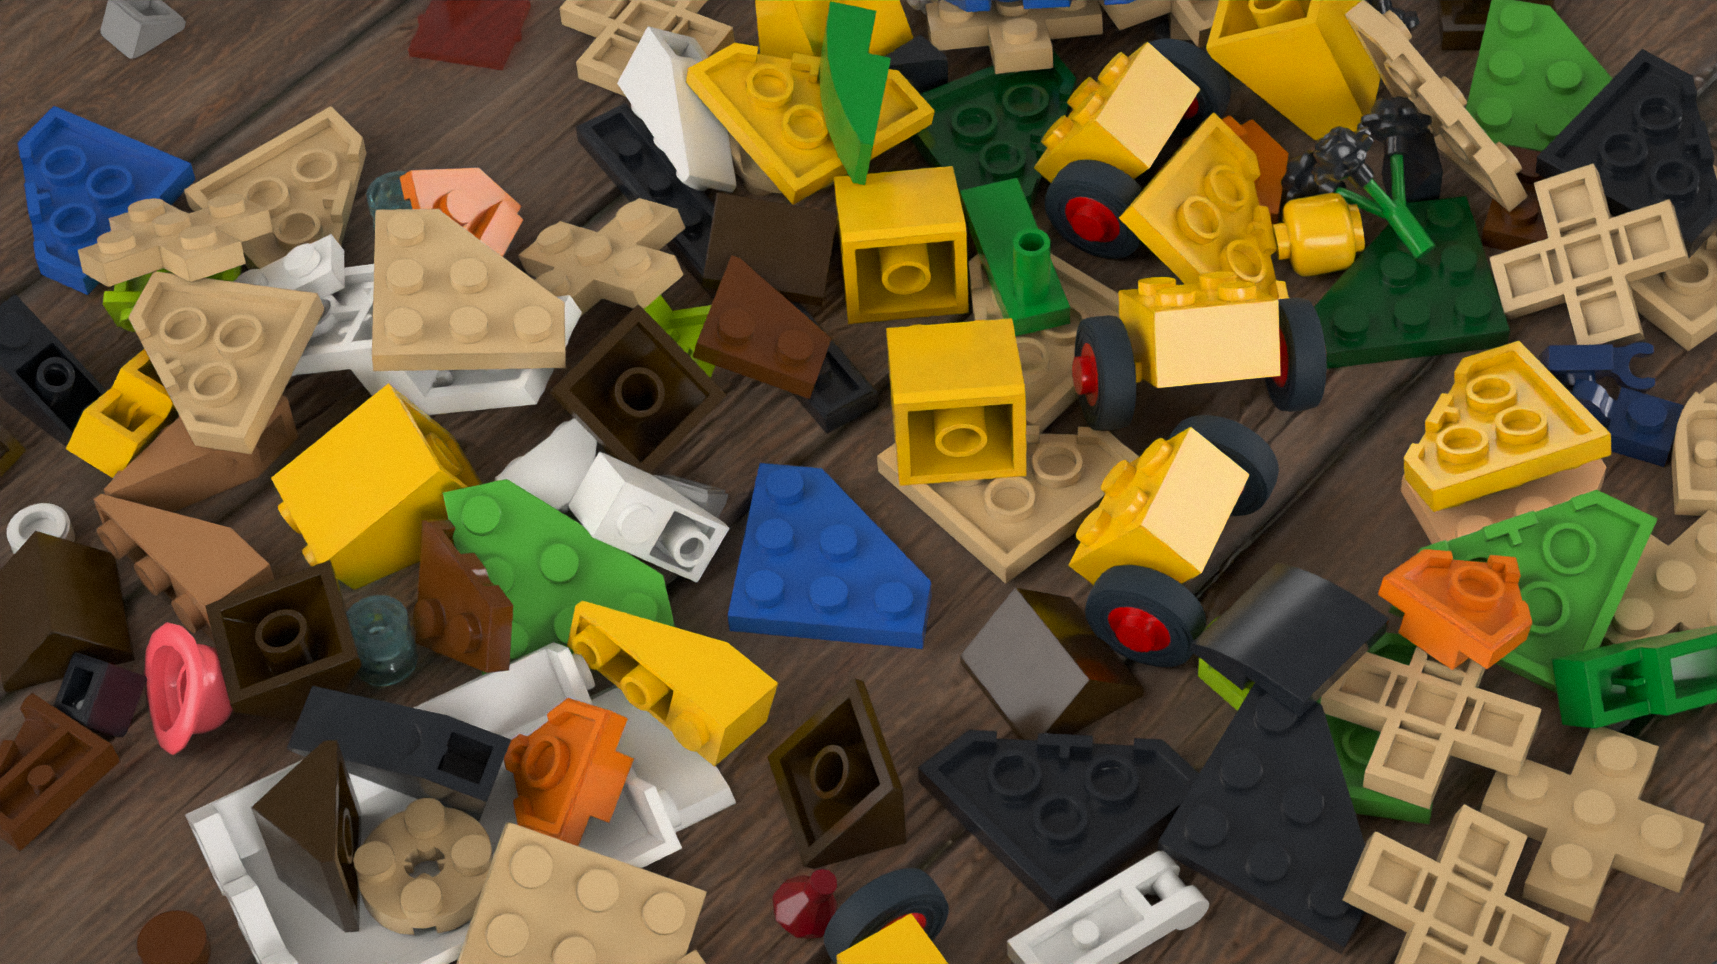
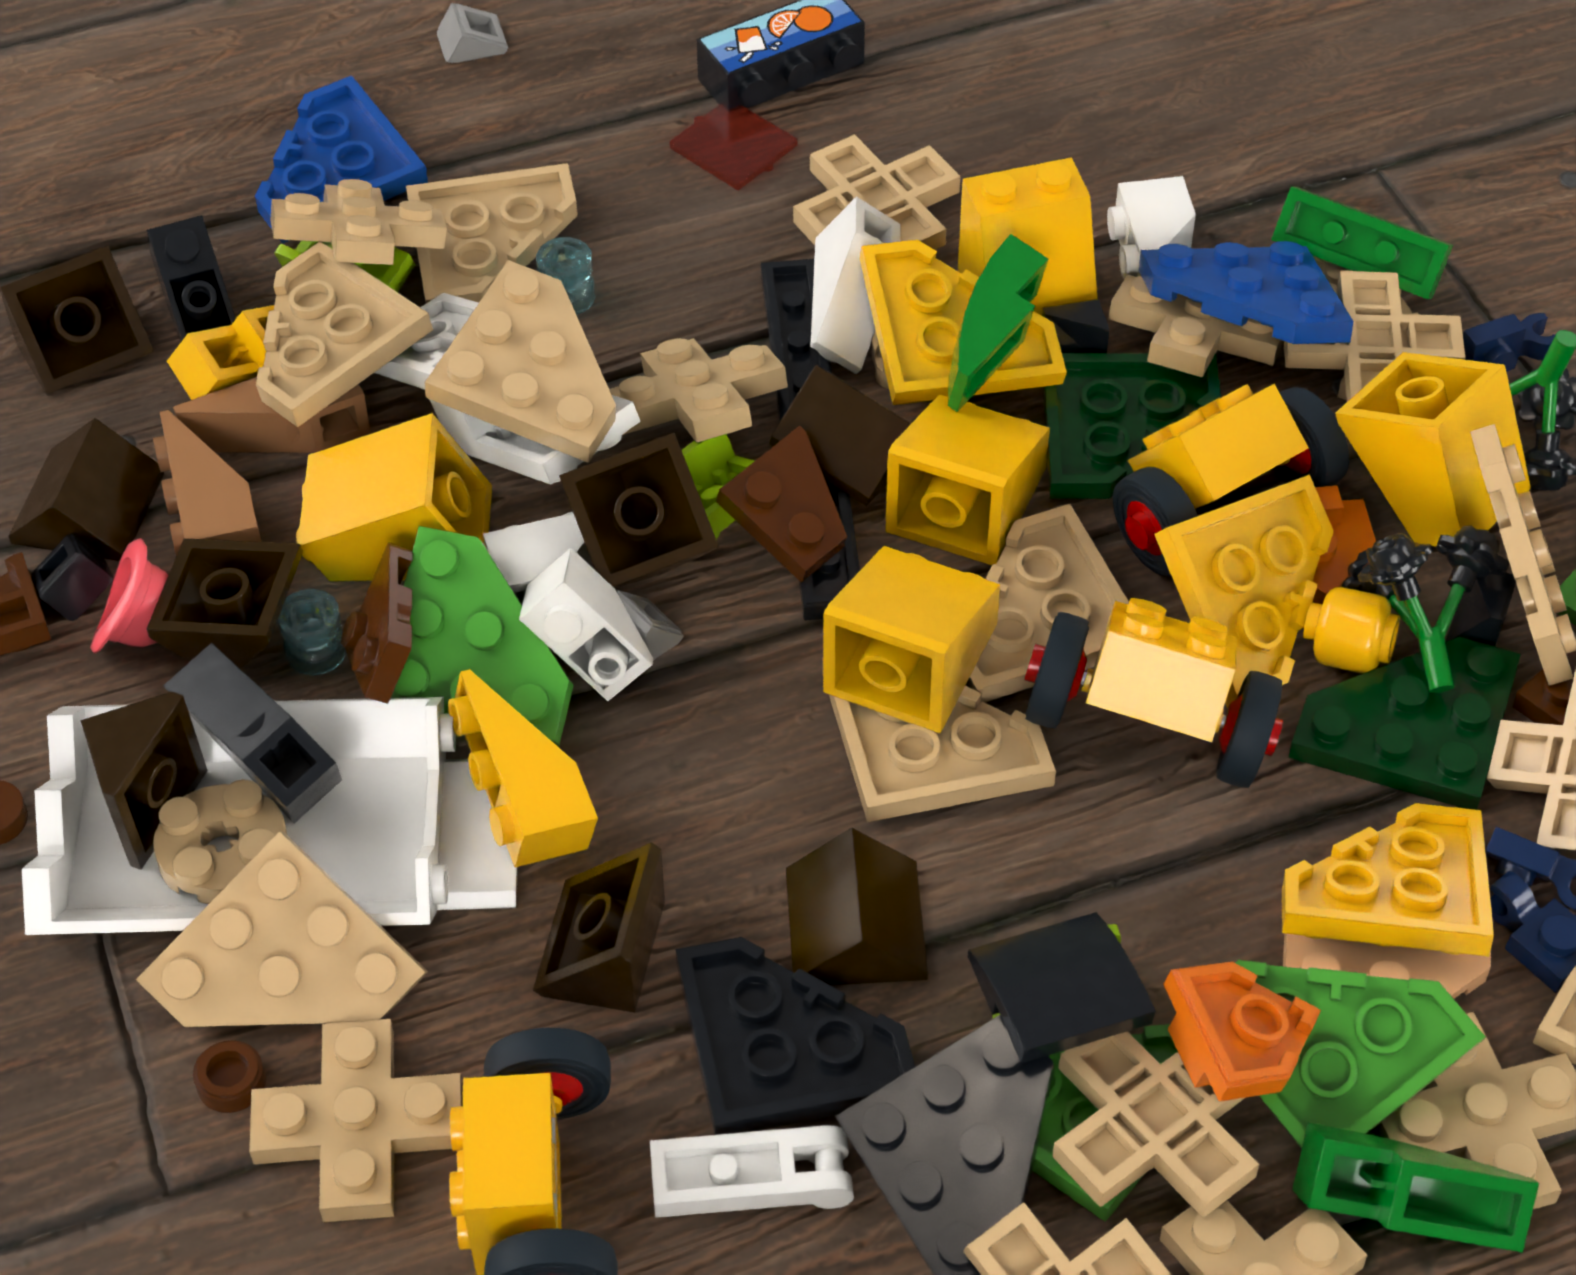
camera: 25 degrees right, 0 degrees up
(41, 518) = (123, 417): white tile -> none
(305, 268) = (442, 294): white plate -> none
(469, 200) = (611, 297): plate -> none
(568, 770) = (379, 815): orange plate -> none
(806, 904) = (504, 1017): dark red rock -> none
(823, 567) = (718, 736): blue plate -> none
(1015, 256) = (1054, 533): green piece -> none
(1160, 531) = (1019, 829): brick -> none

